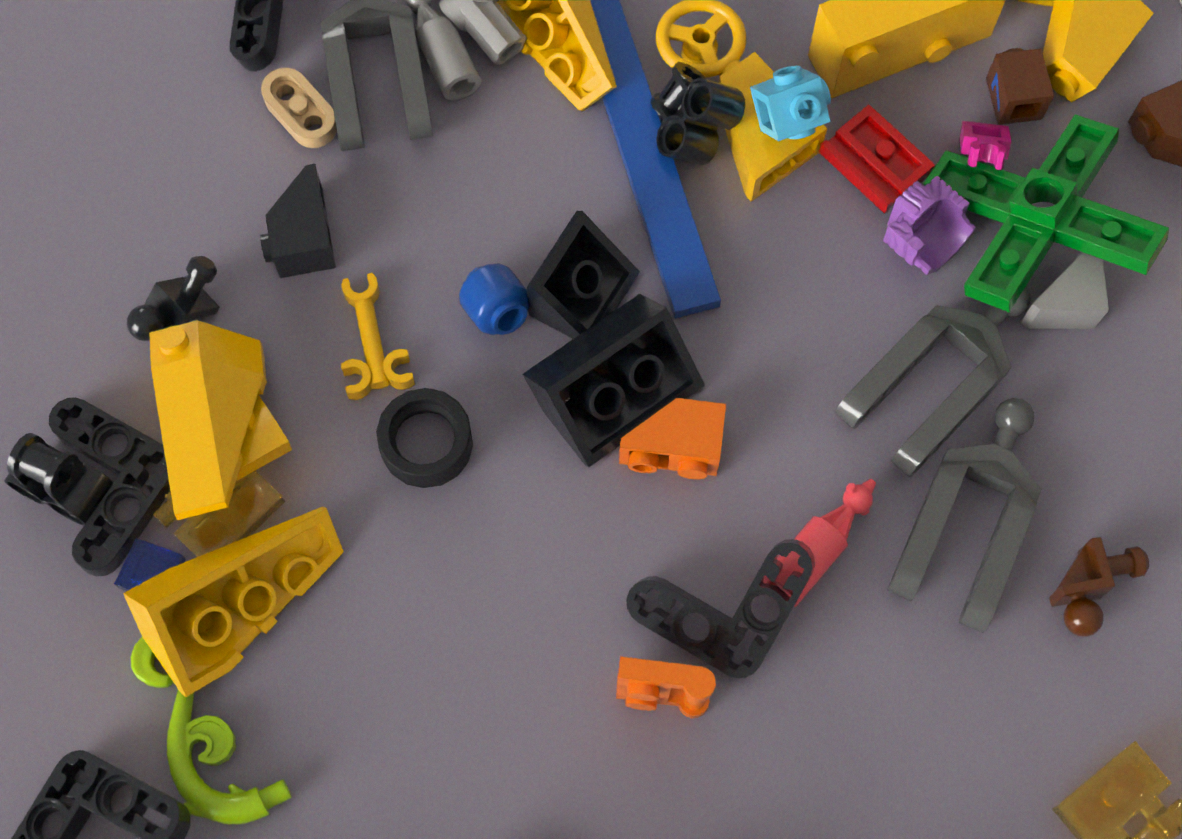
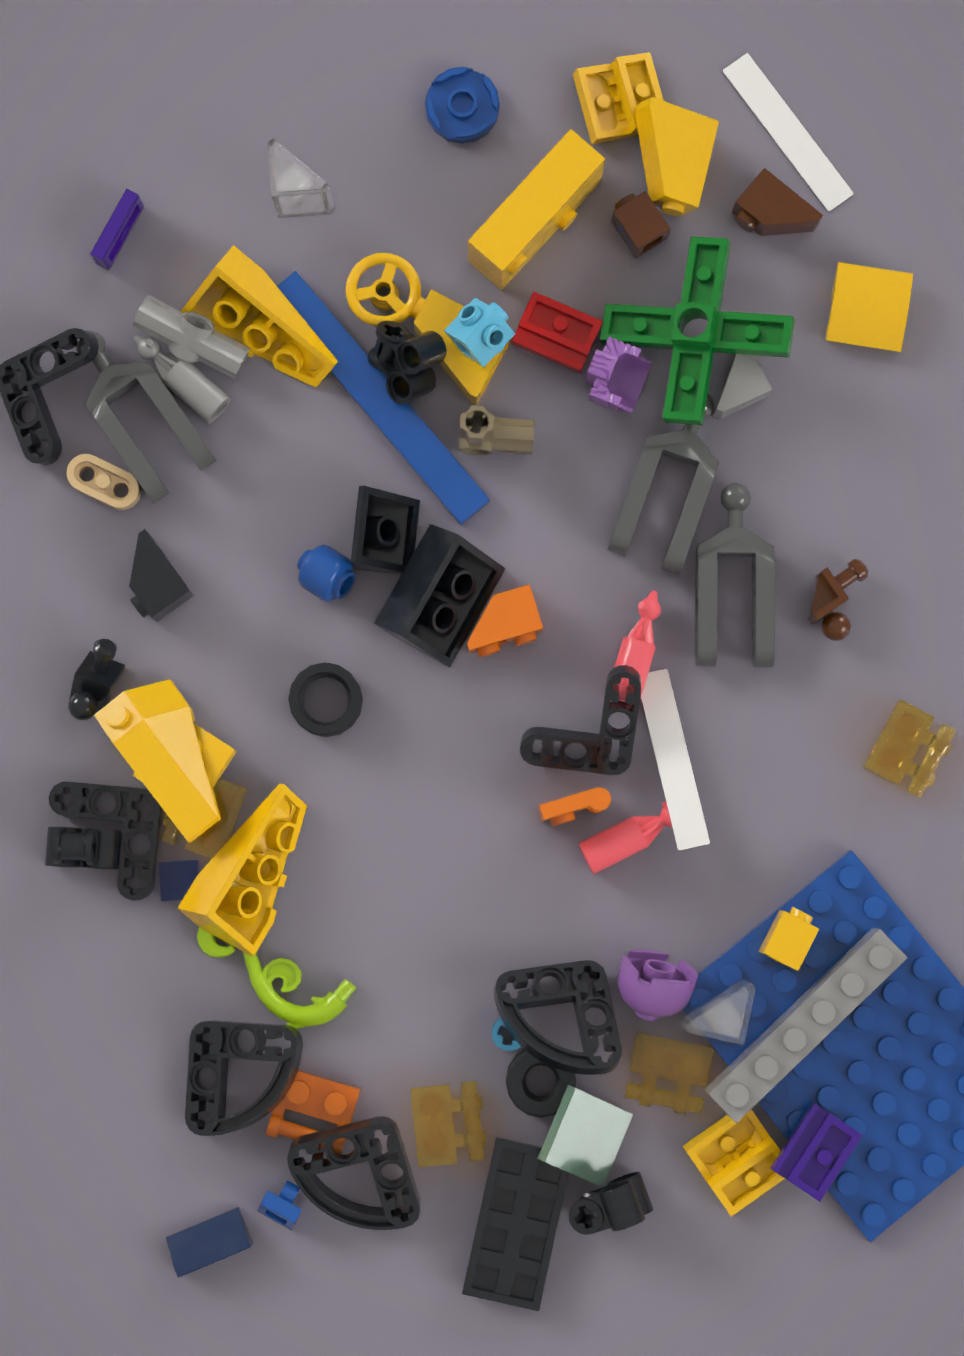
camera: 25 degrees left, 15 degrees up
(378, 370) = (265, 663): yellow bar -> none
(716, 761) = (623, 840): none -> coral wheel
(746, 226) = (484, 433): none -> dark tan piece
(811, 695) = (673, 761): none -> white sticker
(985, 143) = (633, 286): dark pink plate -> none

